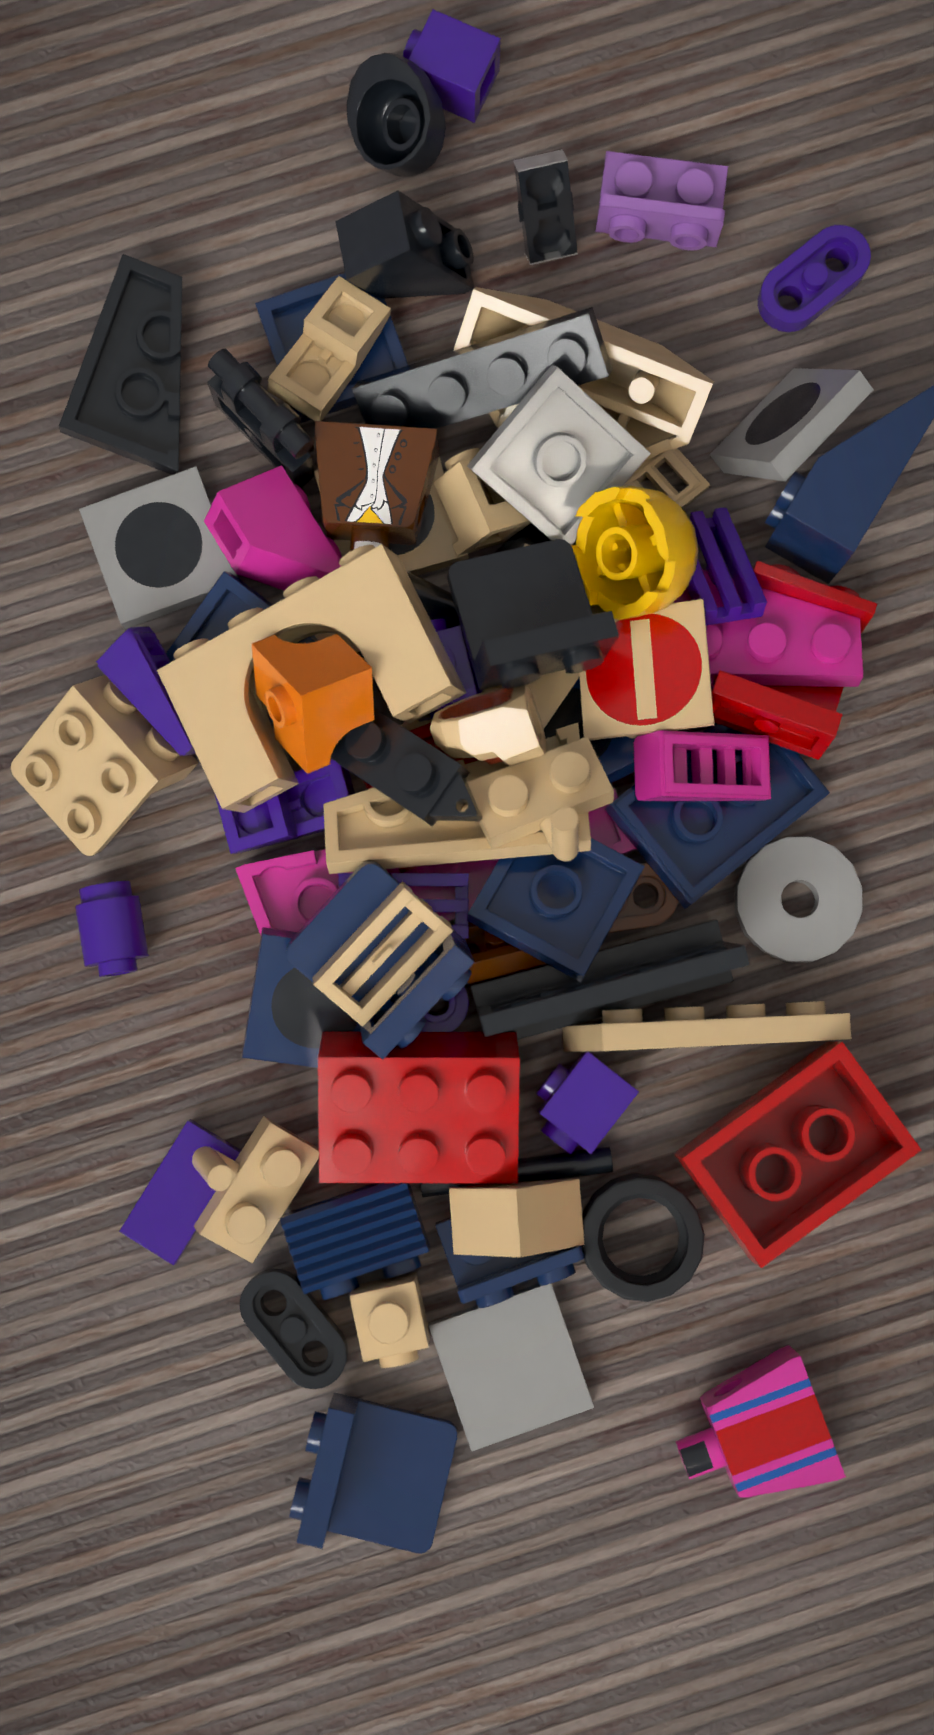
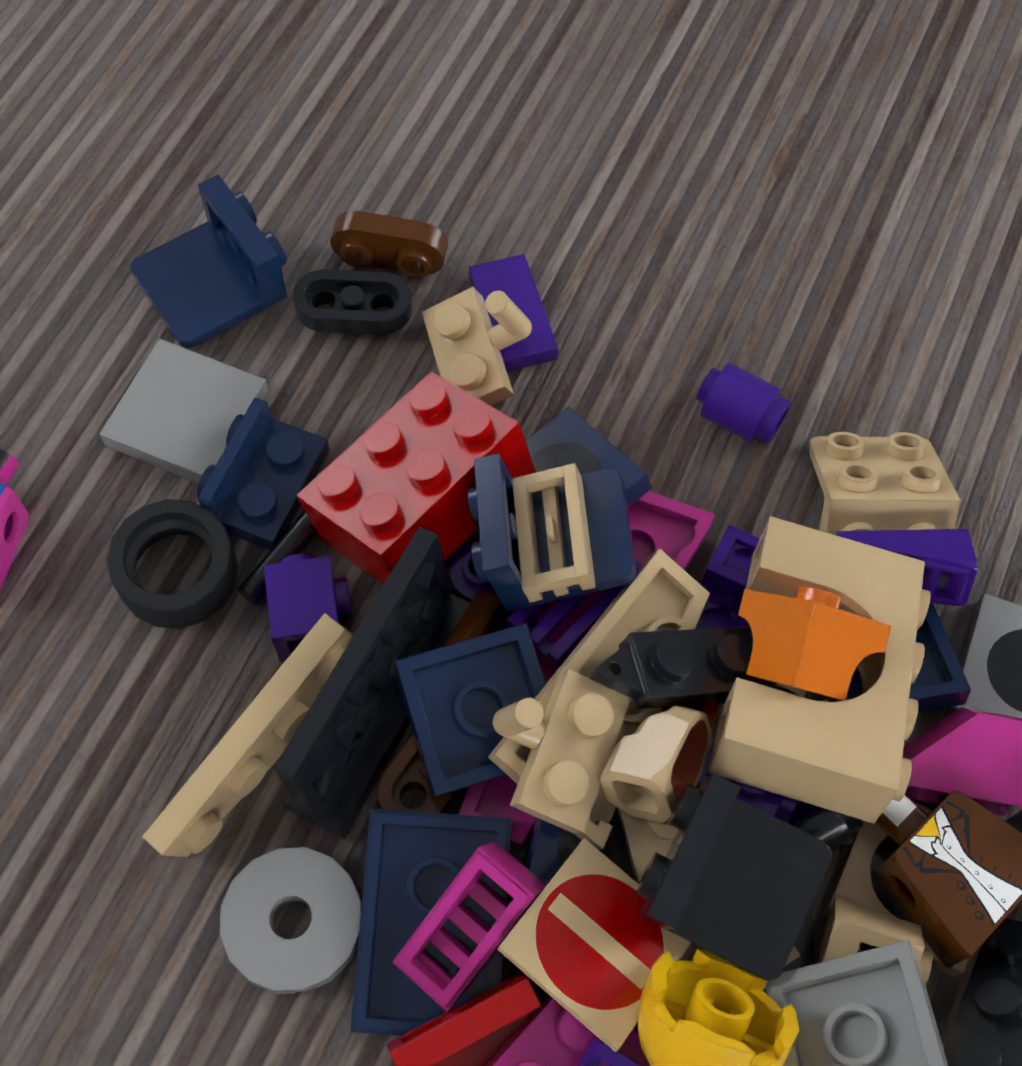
camera: 130 degrees right, 20 degrees down
(228, 1373) = (389, 243): none -> reddish brown plate
(354, 1236) = (372, 374): dark blue brick -> none
(390, 1320) = (296, 356): tan brick -> none
(516, 1218) = (264, 480): tan slope -> none
(797, 1152) = (106, 717): red brick -> none

